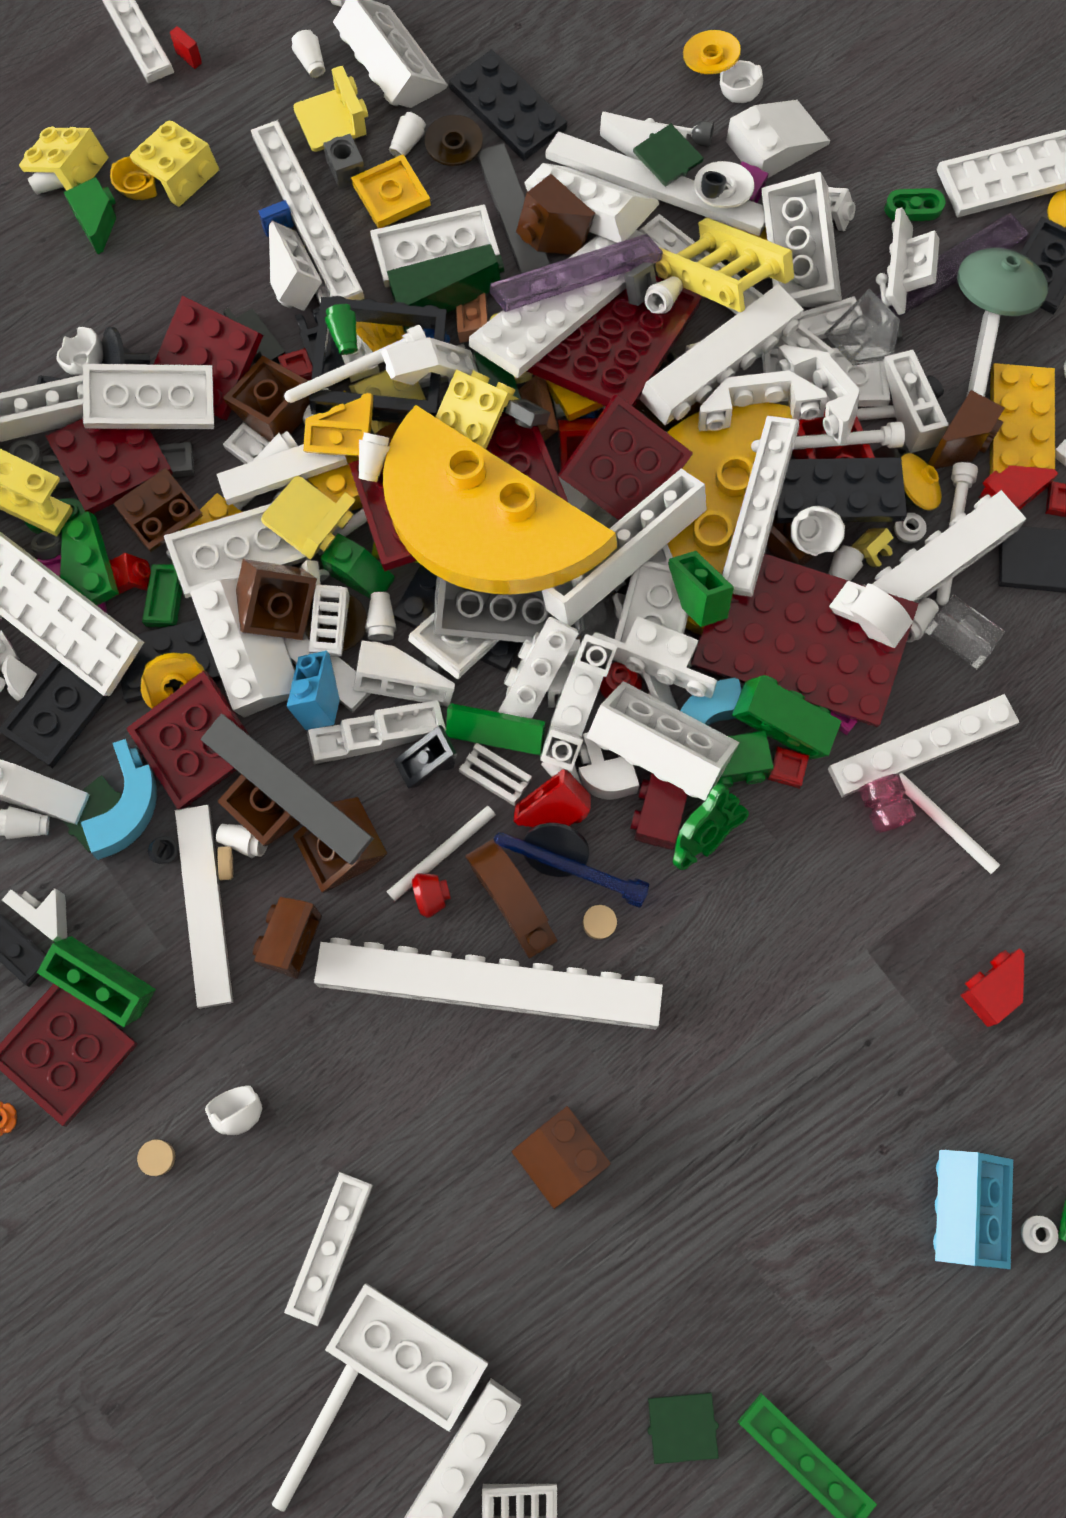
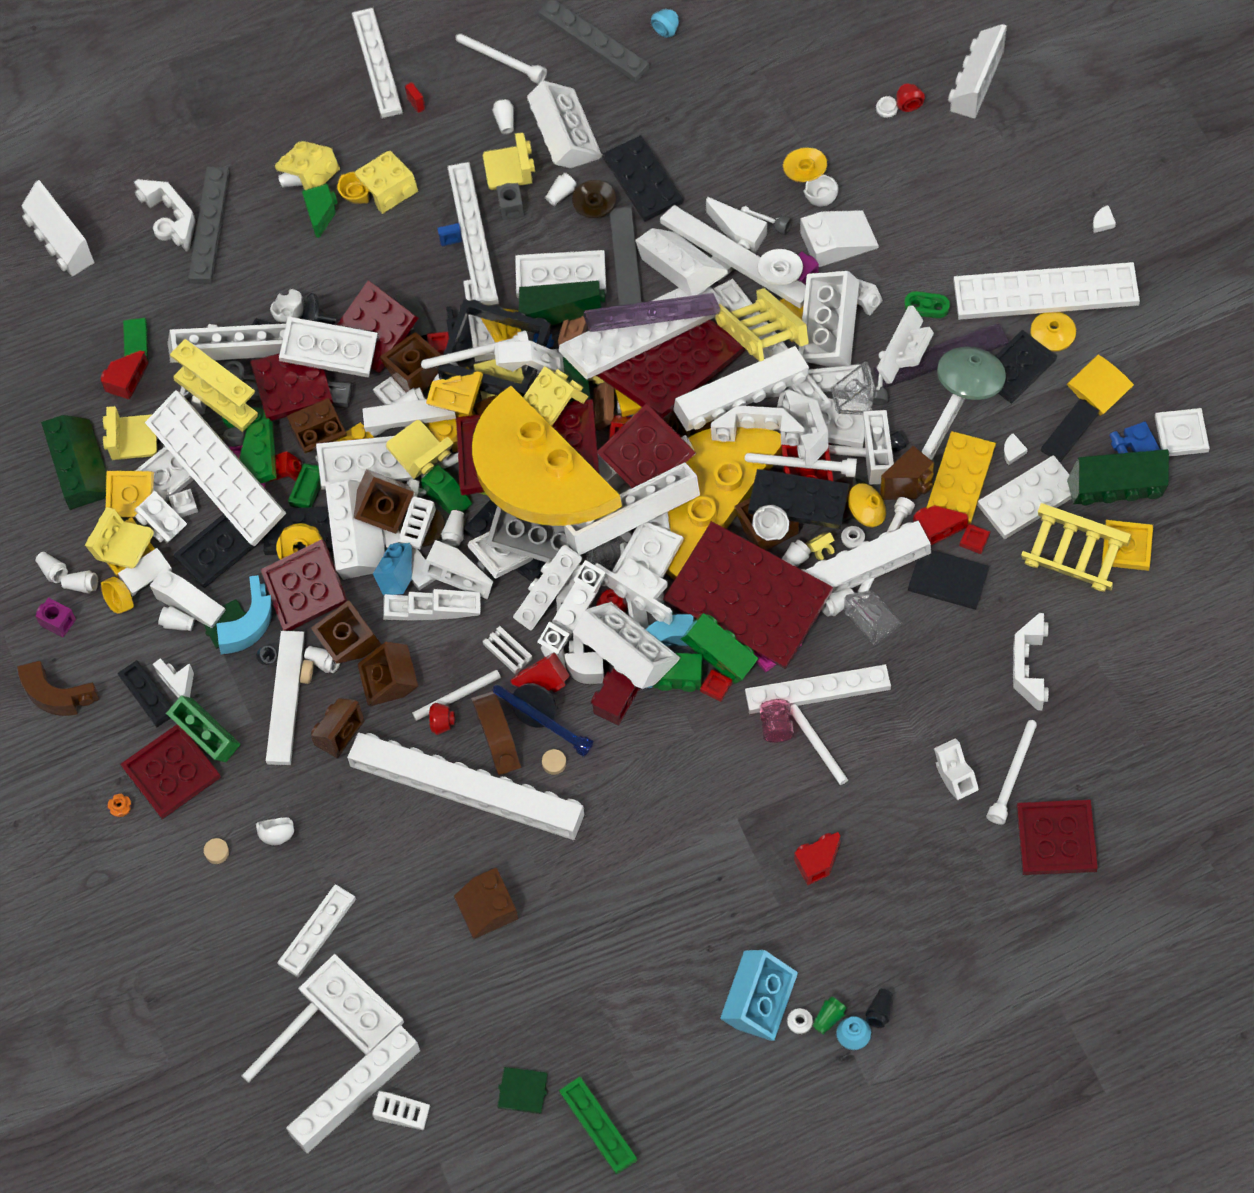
camera: 20 degrees right, 10 degrees down
(17, 677) = (194, 522): white tile -> none
(287, 789) = (359, 626): dark grey tile -> none
(291, 268) = (451, 273): white slope -> none
(342, 326) = (472, 322): green cone -> none
(372, 456) = (471, 414): white cone -> none
(391, 191) = (538, 228): yellow plate -> none
(426, 757) = (461, 627): black slope -> none
(495, 729) = (513, 617): green tile -> none
(527, 413) = (587, 405): dark grey plate -> none
(554, 218) = (648, 270): reddish brown slope -> none
(638, 282) = (698, 328): dark grey plate -> none
(662, 295) = (713, 339): white cone -> none
(668, 154) = (746, 237): dark green piece -> none
(701, 588) = (677, 547): green slope -> none
(708, 826) = (644, 709): green tile -> none
(712, 184) = (768, 266): black hinge -> none
(760, 504) = (735, 498): white tile -> none
(874, 610) = (793, 585): white brick -> none

